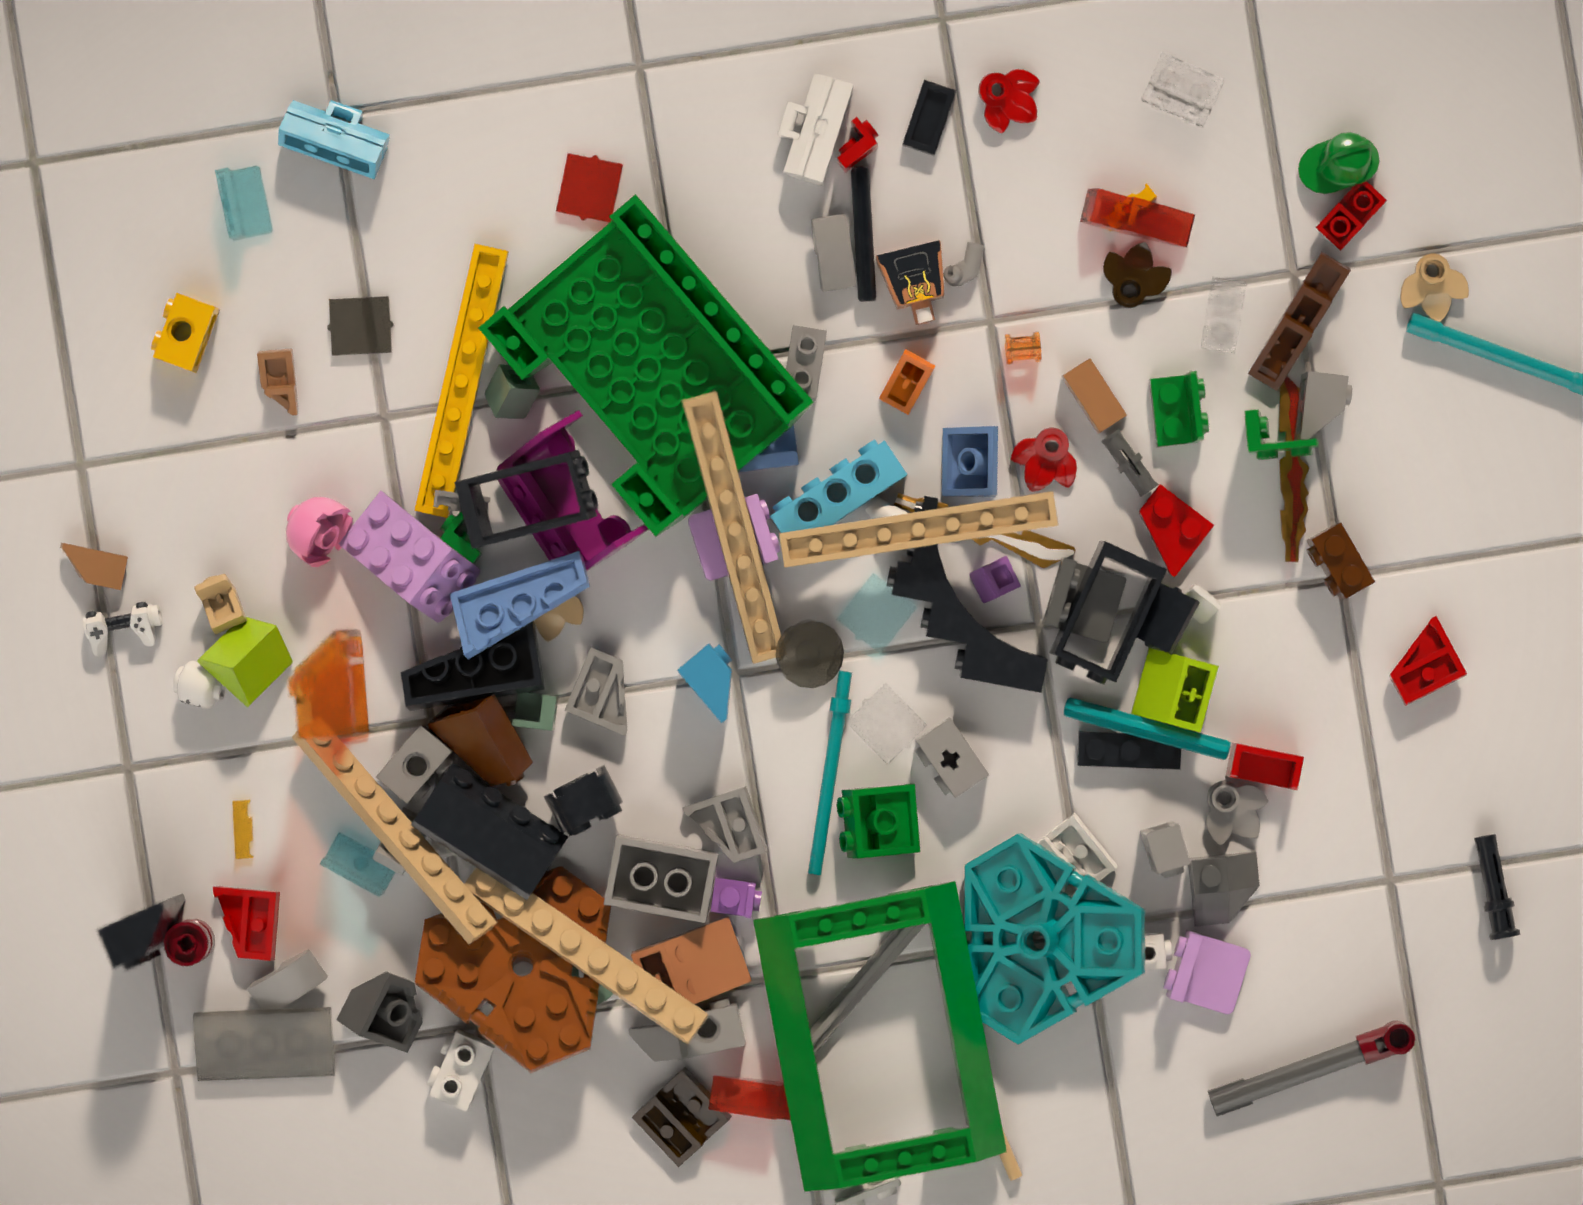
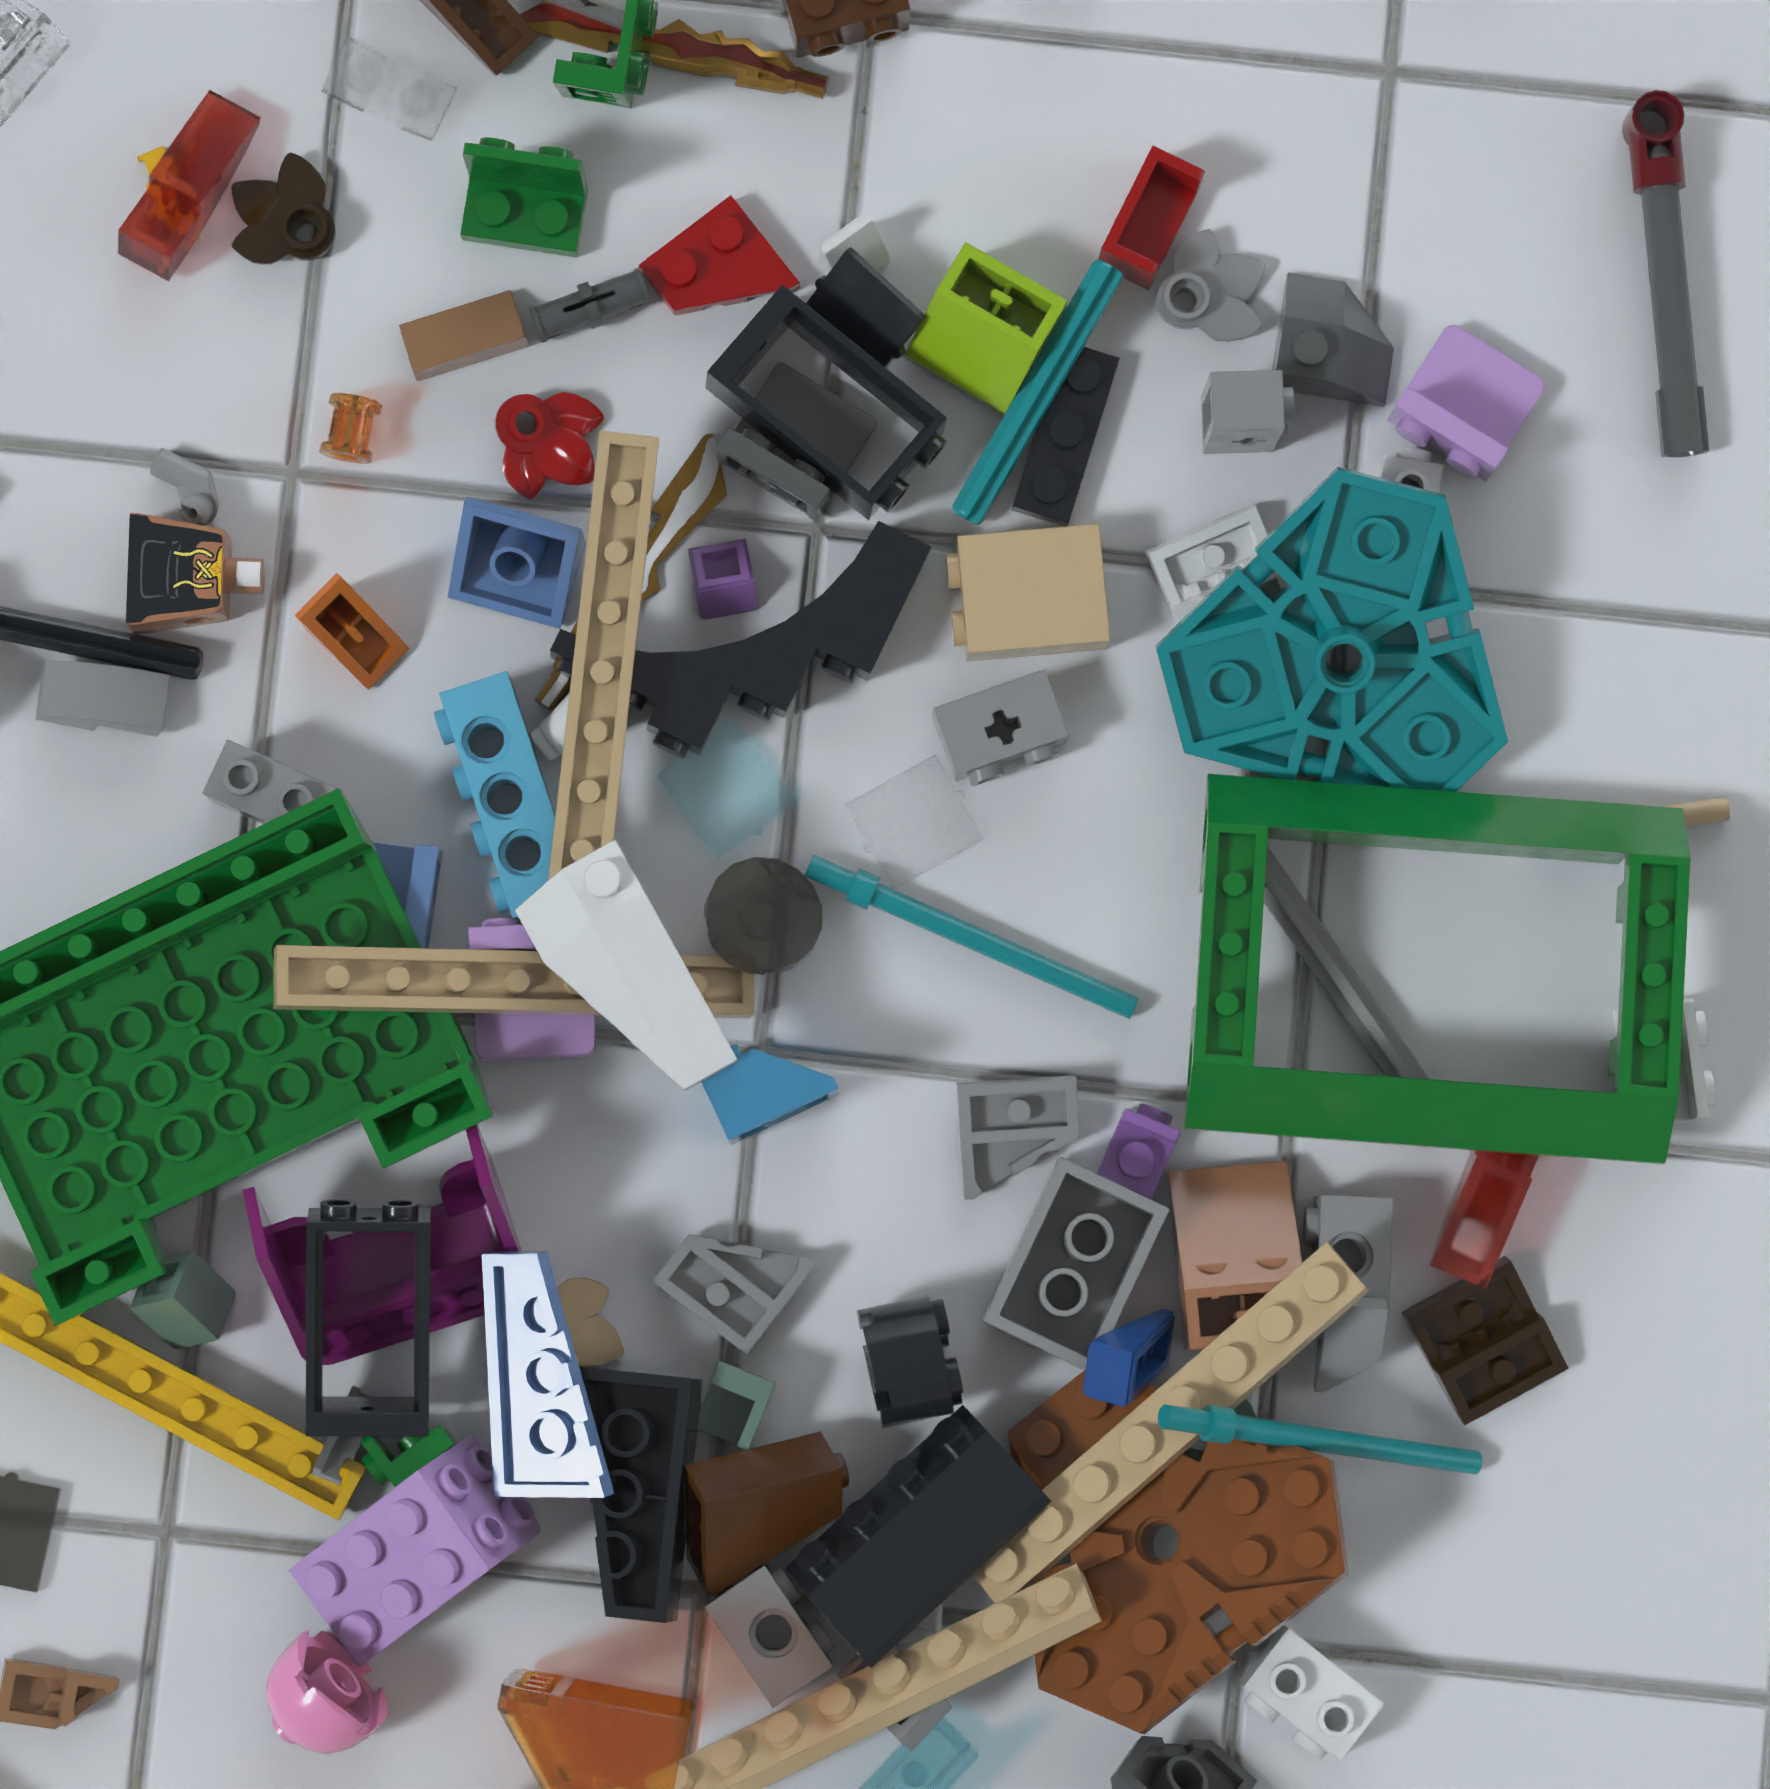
camera: 85 degrees left, 5 degrees down
(592, 983) = (1222, 1425): none -> teal bar
(617, 922) = (1128, 1358): none -> blue slope
(760, 583) = (616, 954): none -> white wedge
(879, 821) = (1074, 875): green plate -> none
(1031, 754) = (1029, 593): none -> tan brick

